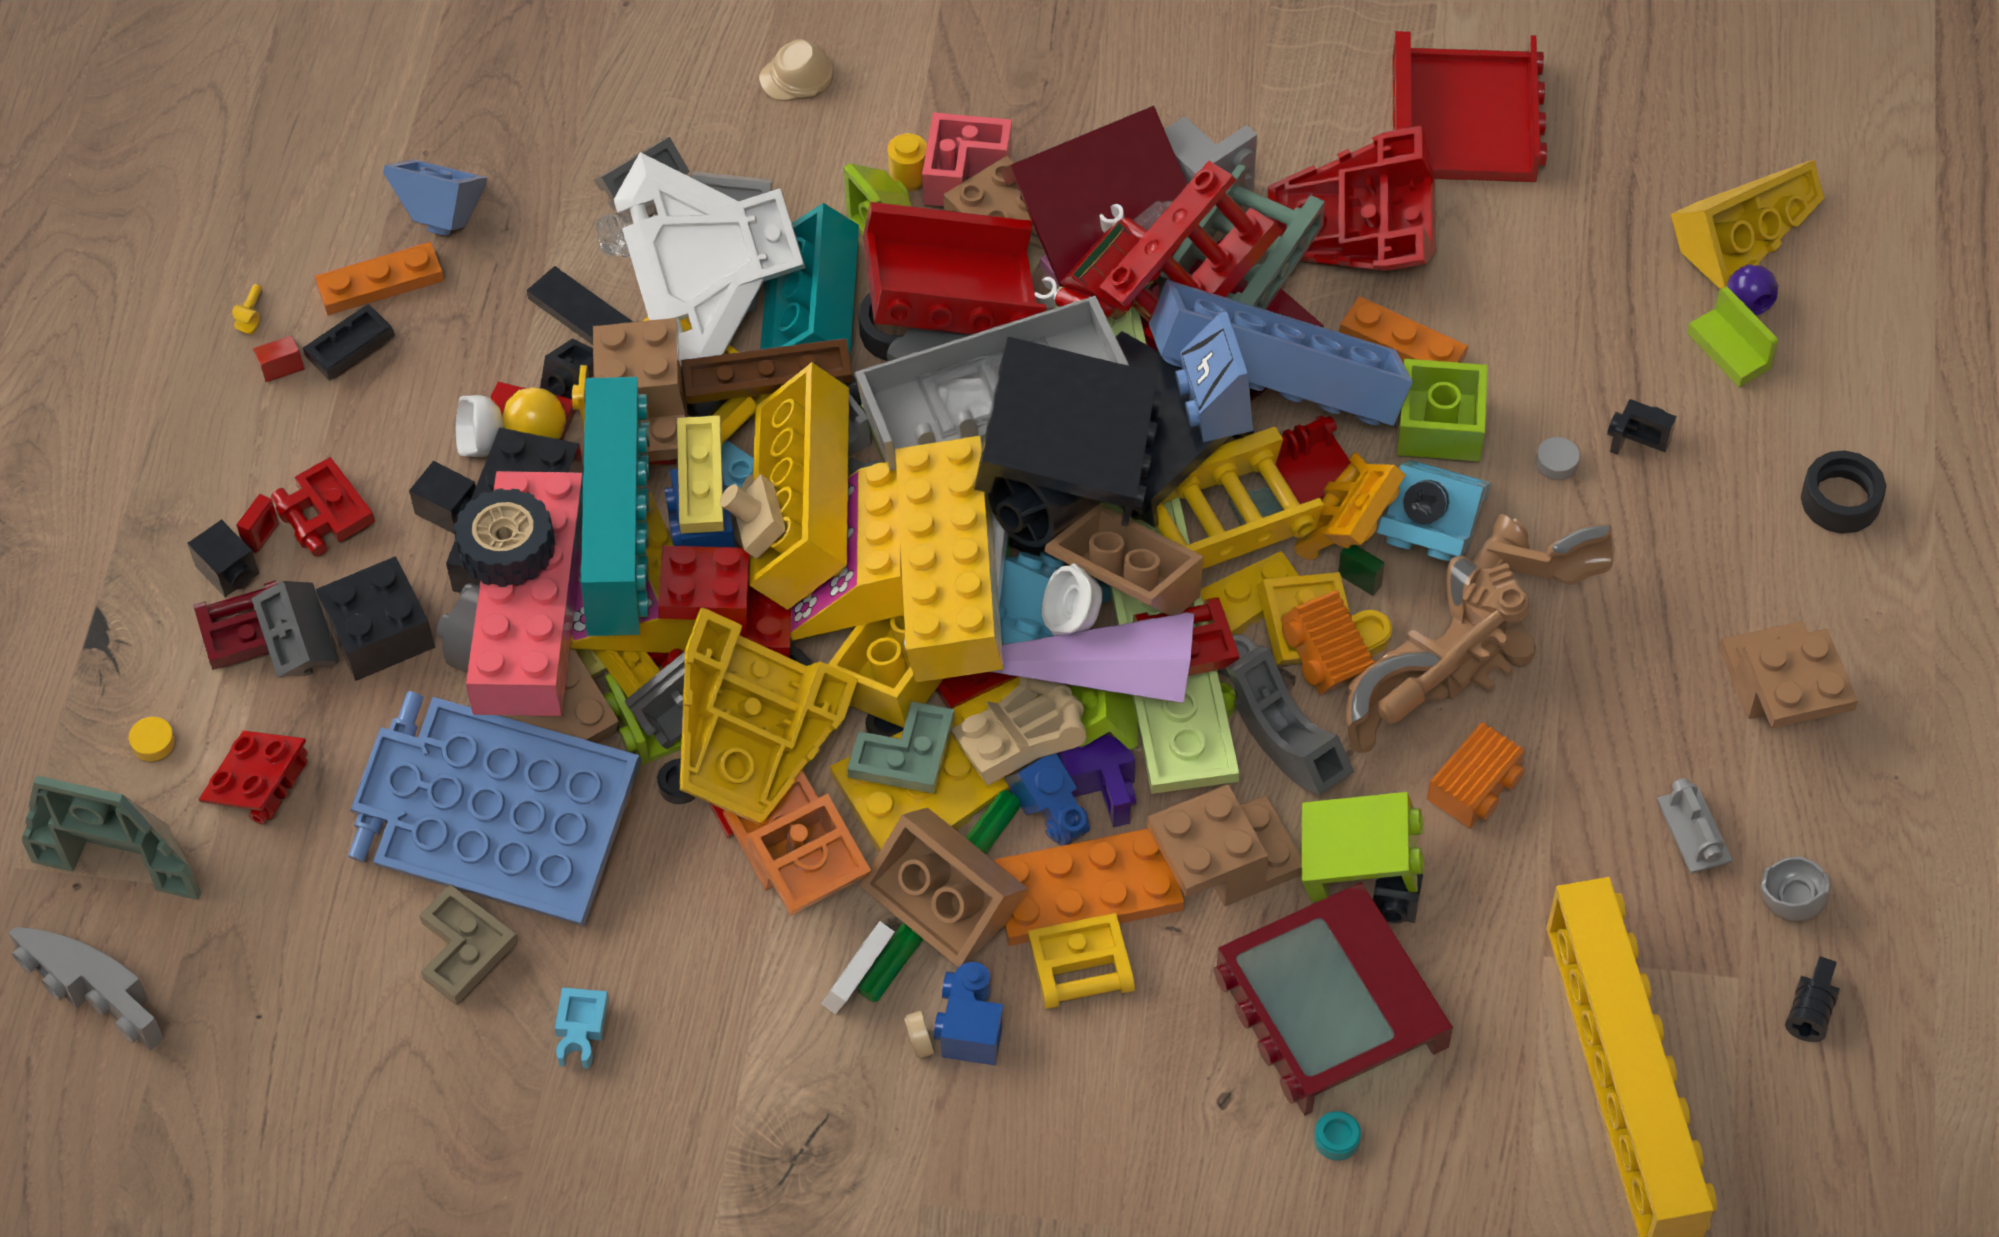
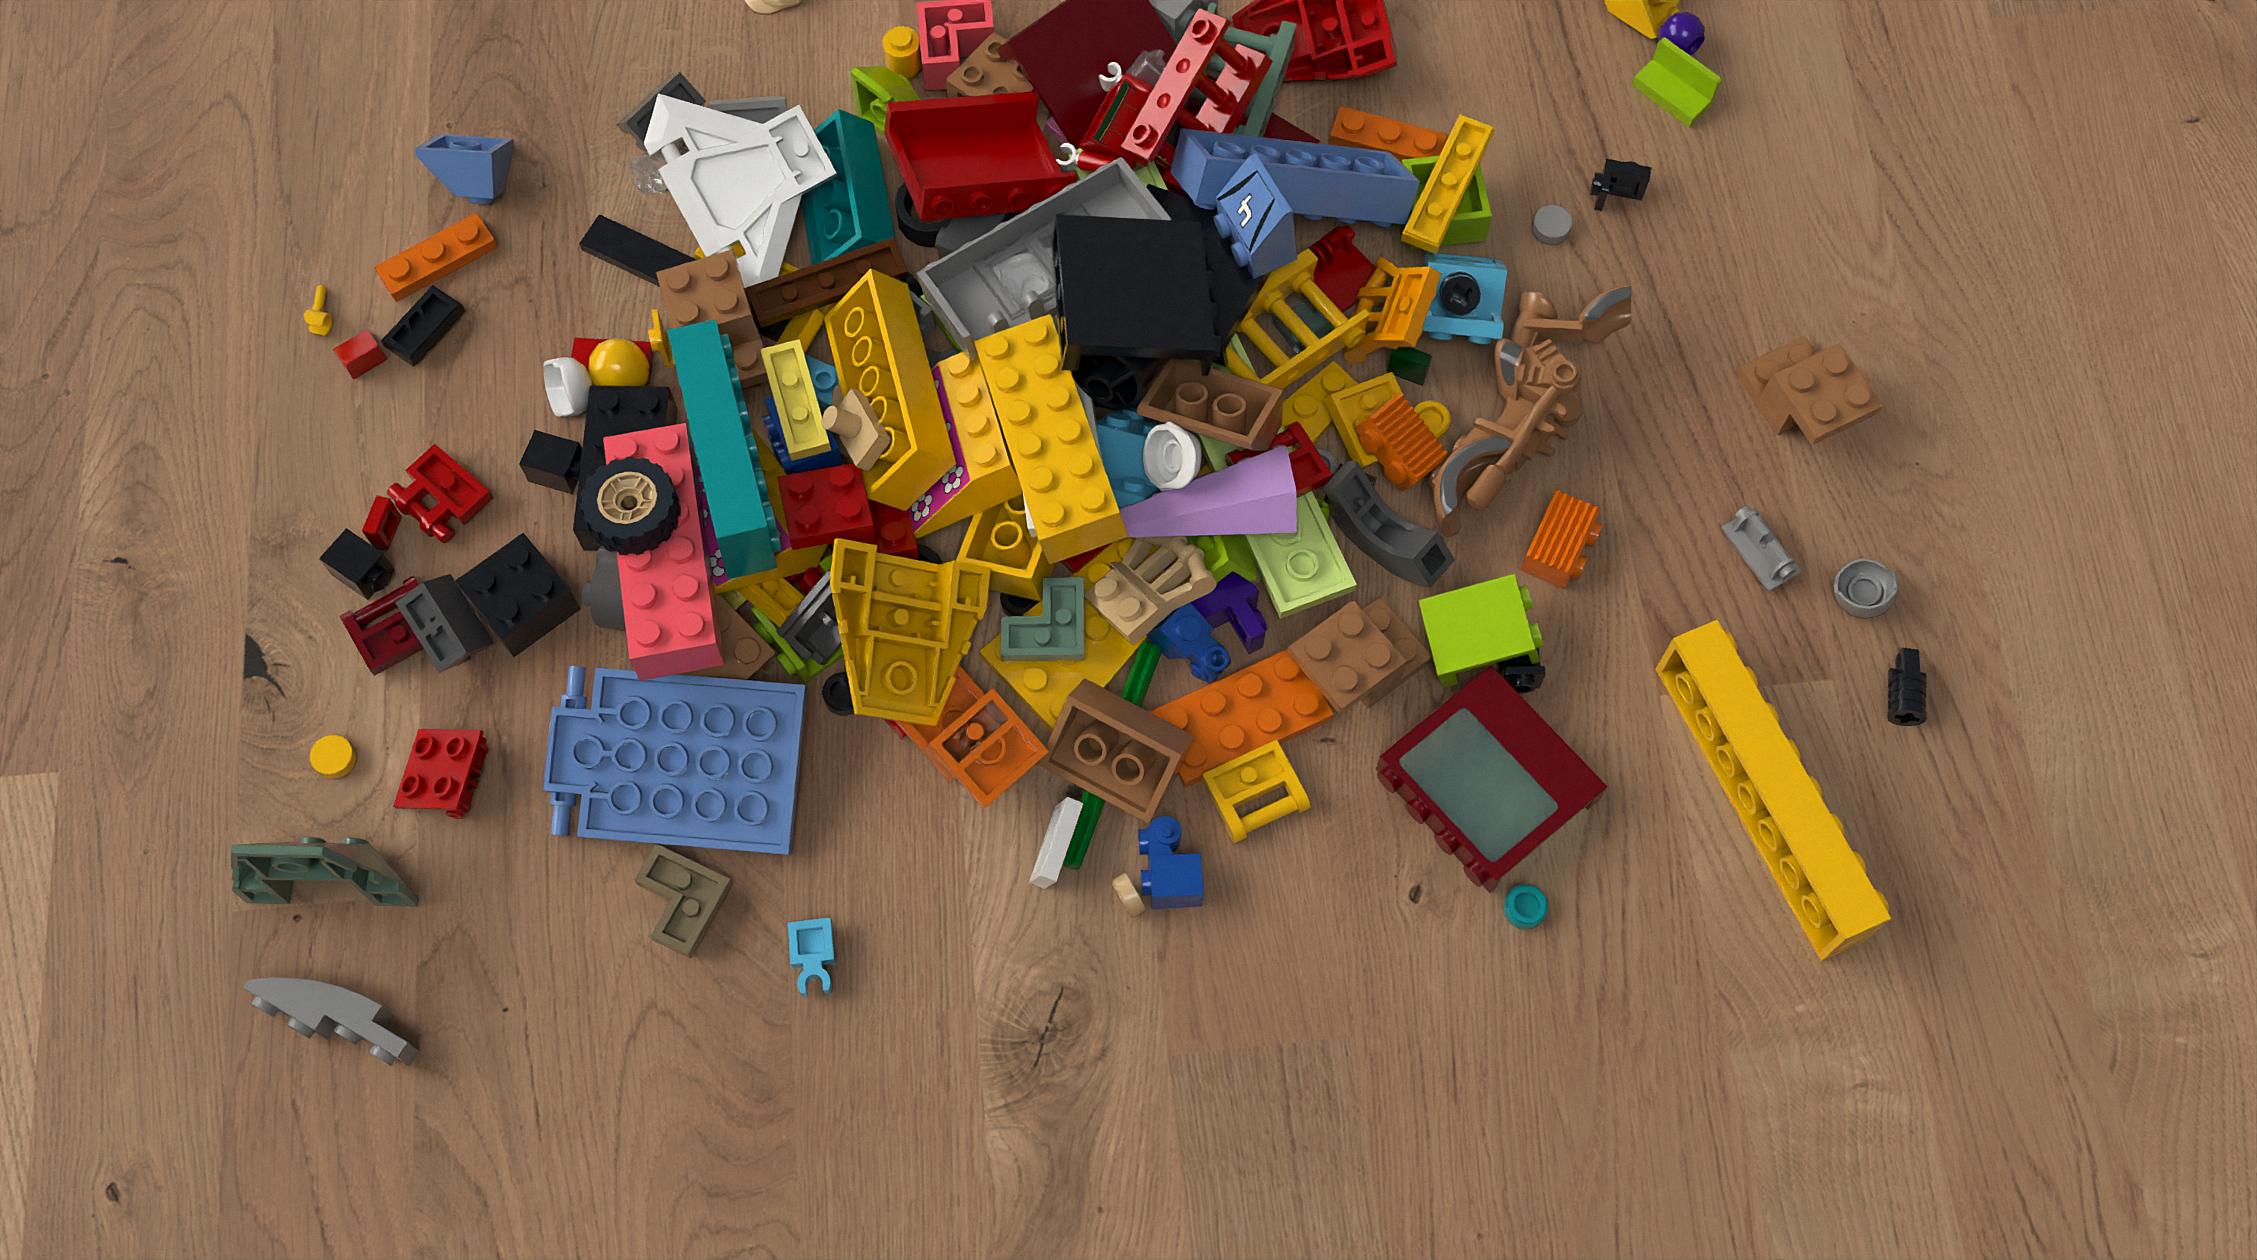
camera: 15 degrees left, 10 degrees up
(563, 365) = (634, 312): black bracket -> none
(1445, 391) = (1447, 184): none -> yellow tile
(1848, 466) = (1814, 185): black tyre -> none

